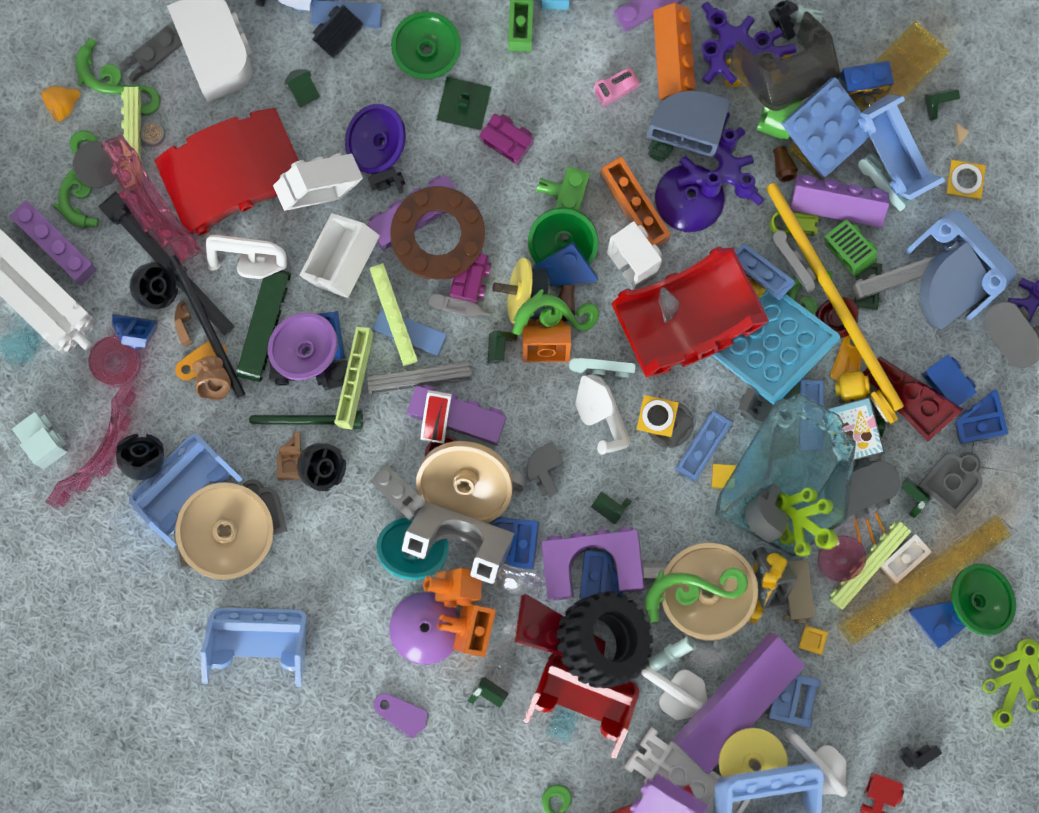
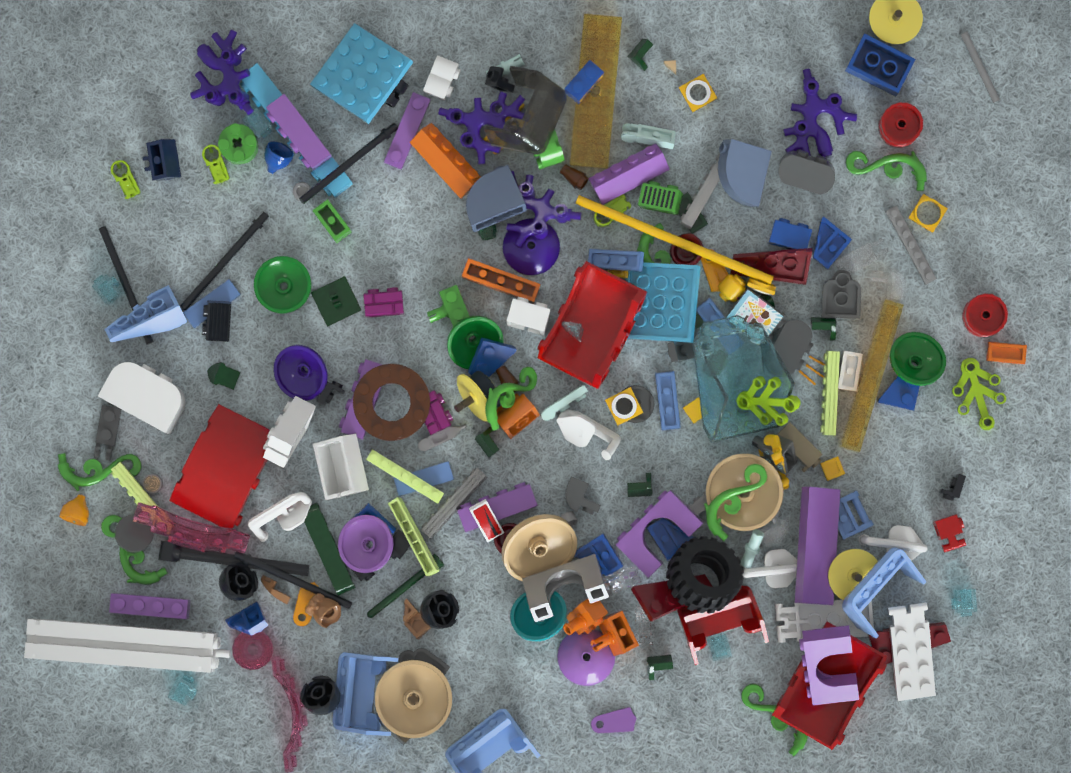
camera: 35 degrees left, 5 degrees up
(39, 441) = (247, 737): light aqua brick -> none
(398, 492) = (500, 586): light grey plate -> none
(616, 86) = (426, 211): bright pink leg -> none
(764, 516) = (740, 417): dark grey brick -> none
(794, 261) = (630, 235): light grey plate -> none
(826, 127) = (584, 133): medium blue plate -> none
(846, 548) = (806, 394): clear pink dish -> none
(897, 148) = (641, 112): light blue windscreen -> none
(959, 227) = (718, 128): light blue windscreen -> none

